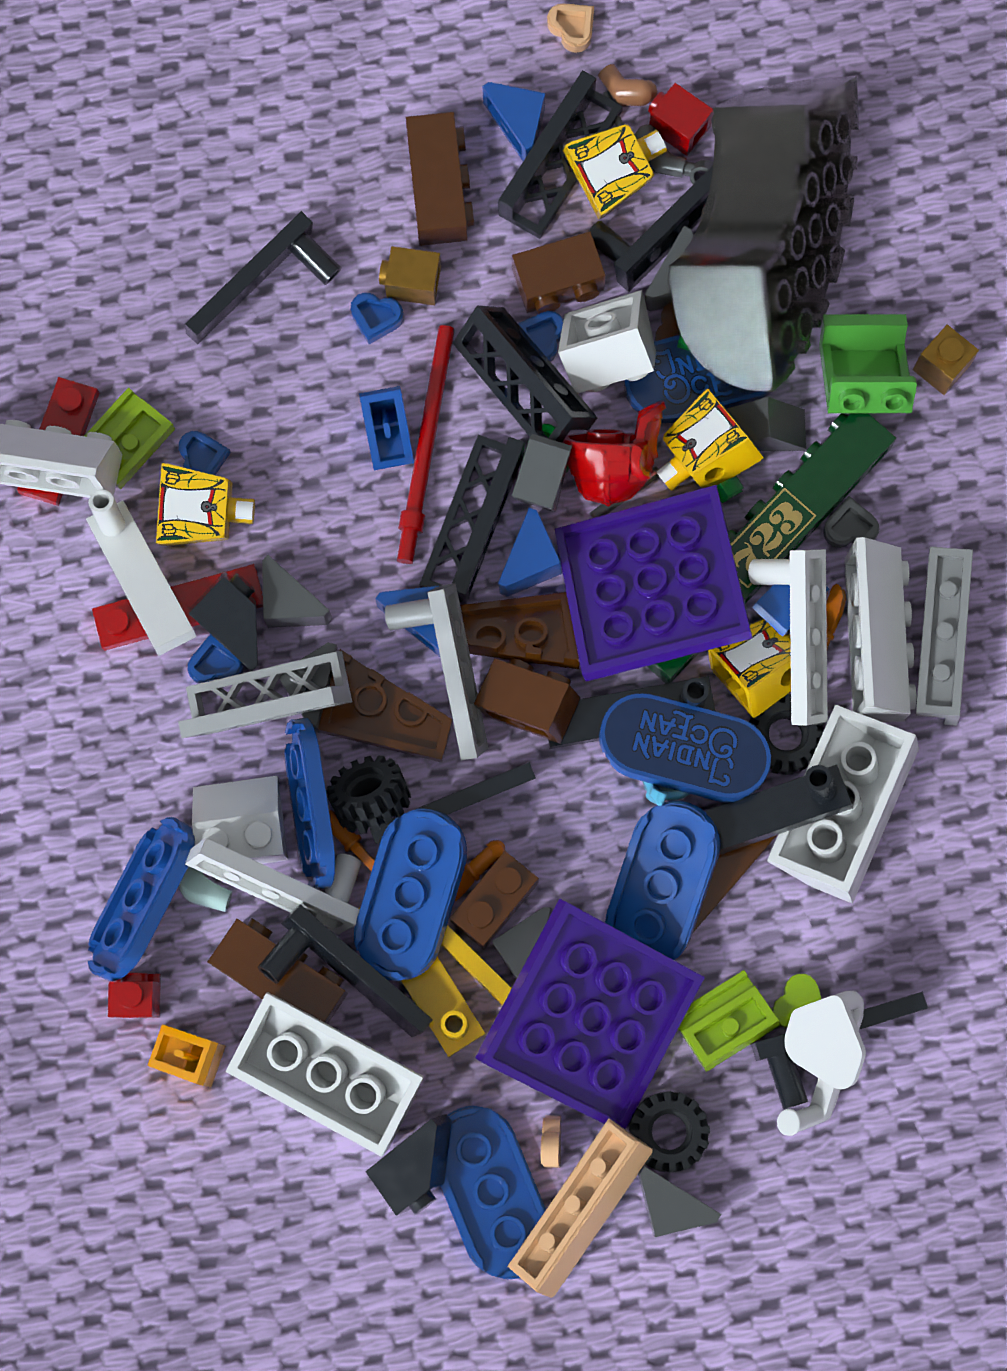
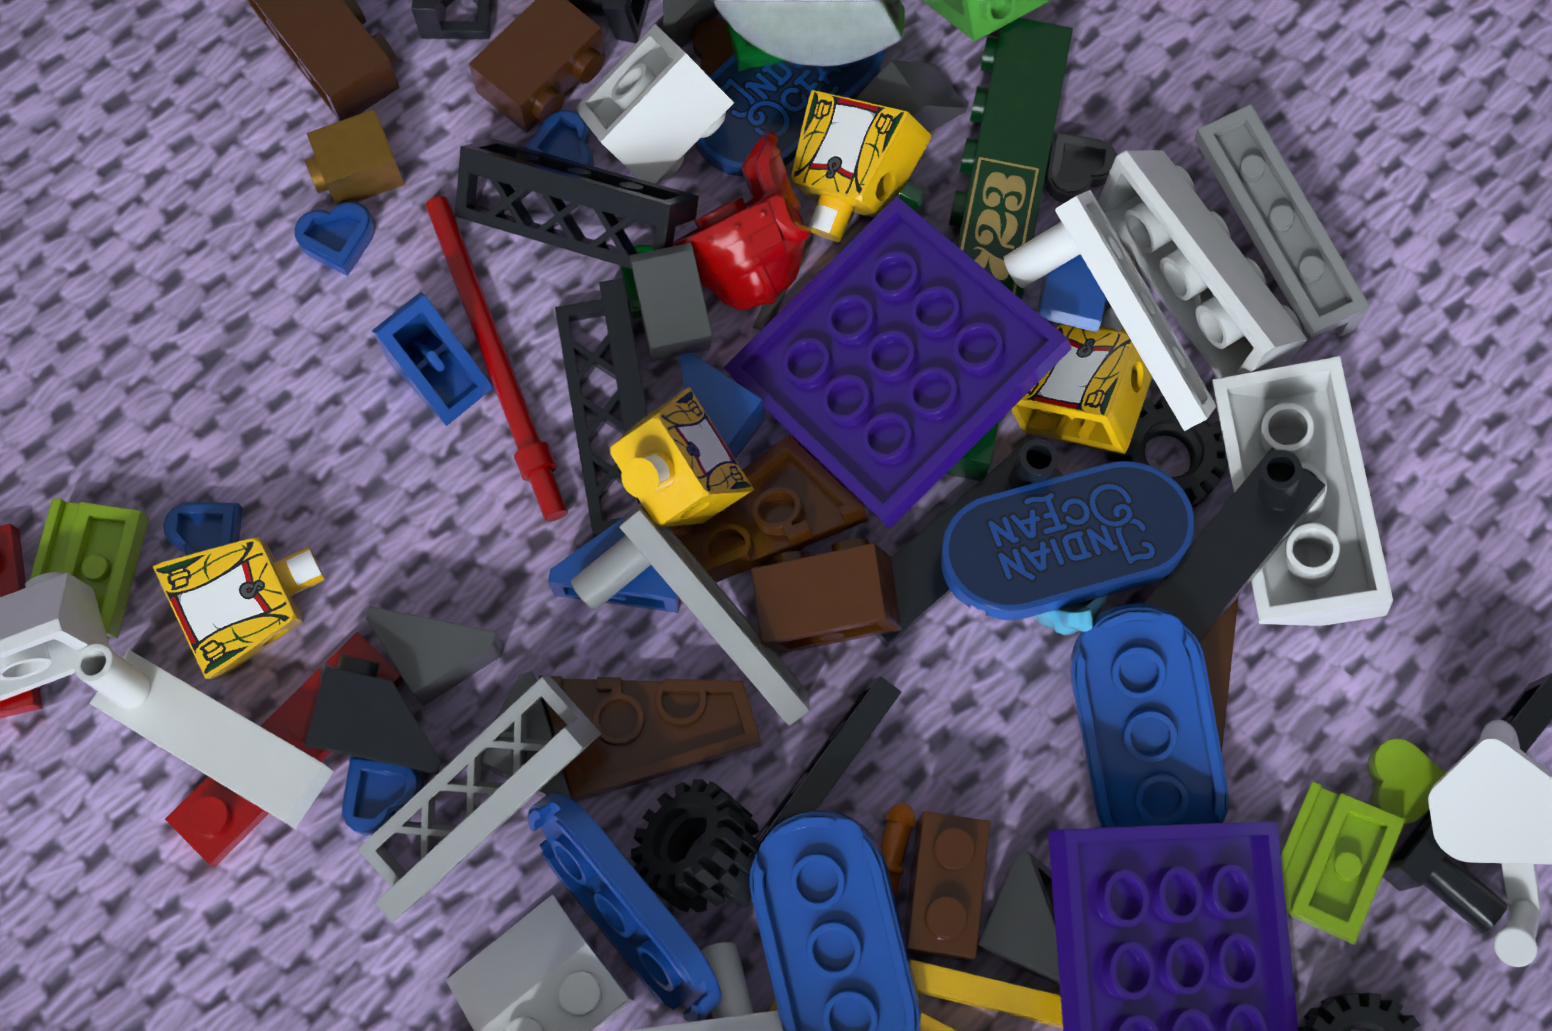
camera: 35 degrees left, 5 degrees down
(291, 239) = (167, 200): black piece -> none
(350, 841) = (705, 923): orange piece -> none
(485, 574) = (679, 464): none -> yellow torso

